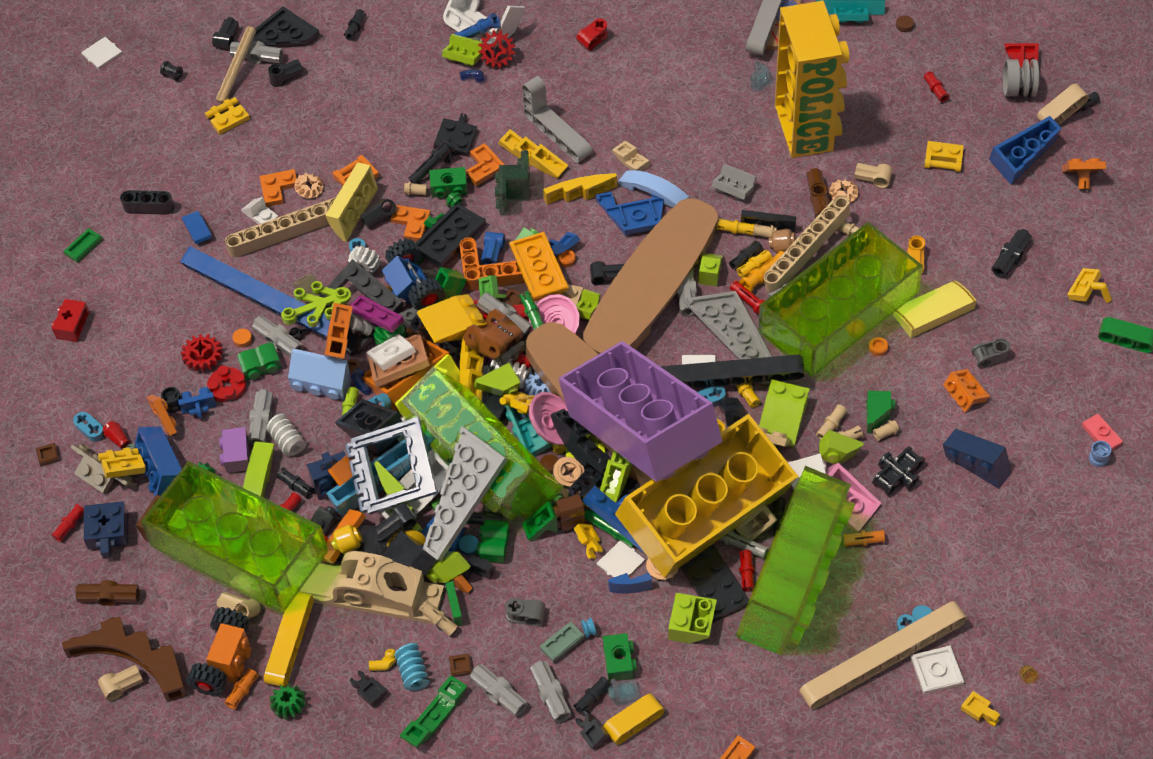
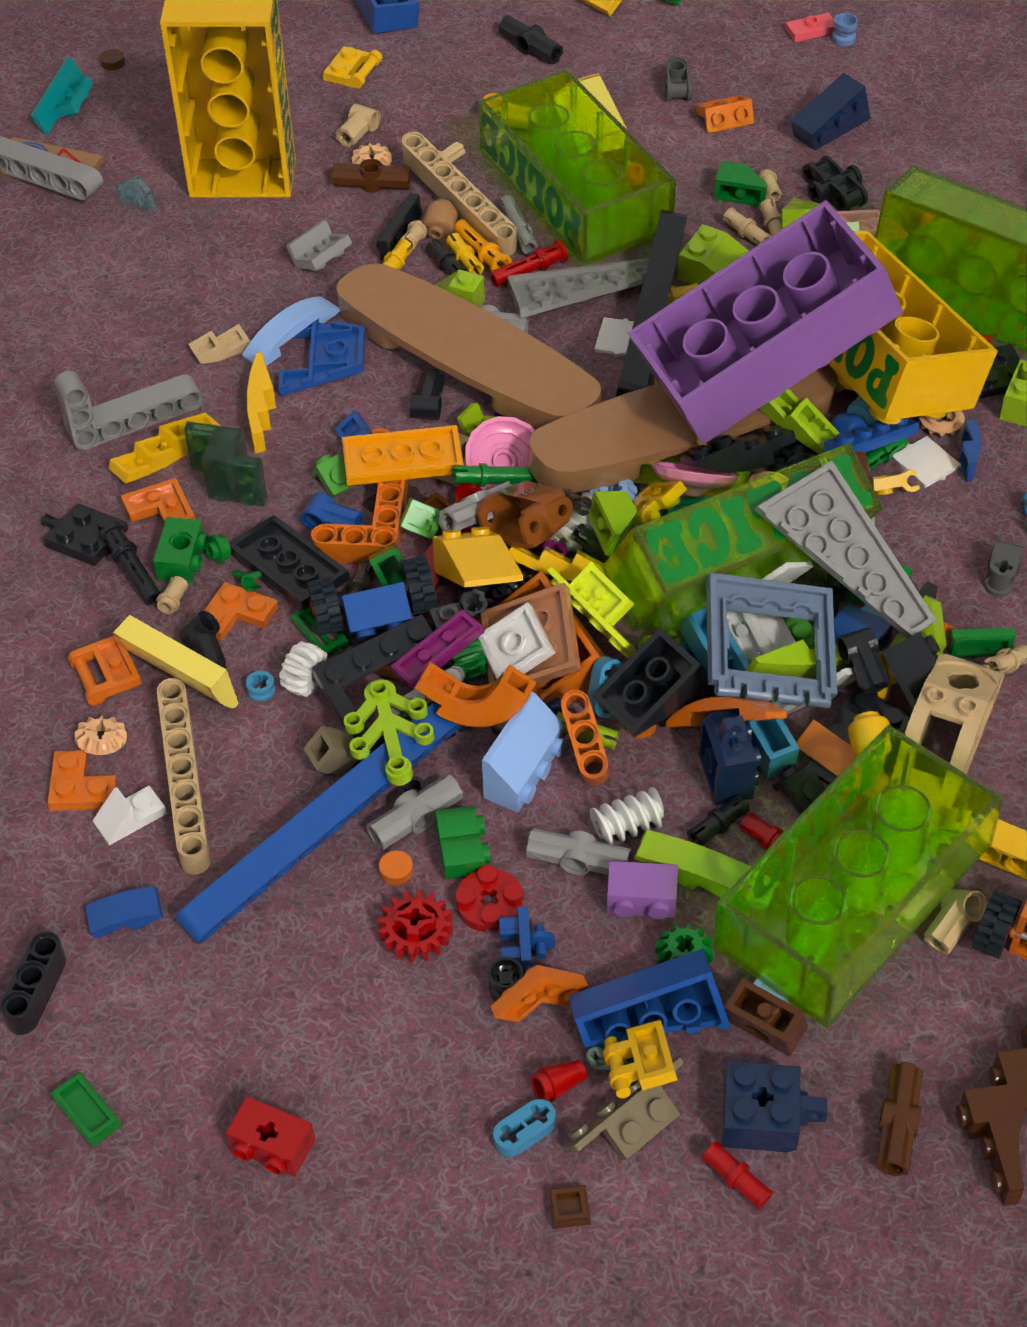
camera: 80 degrees left, 5 degrees down
(333, 402) = (581, 723): none -> orange beam

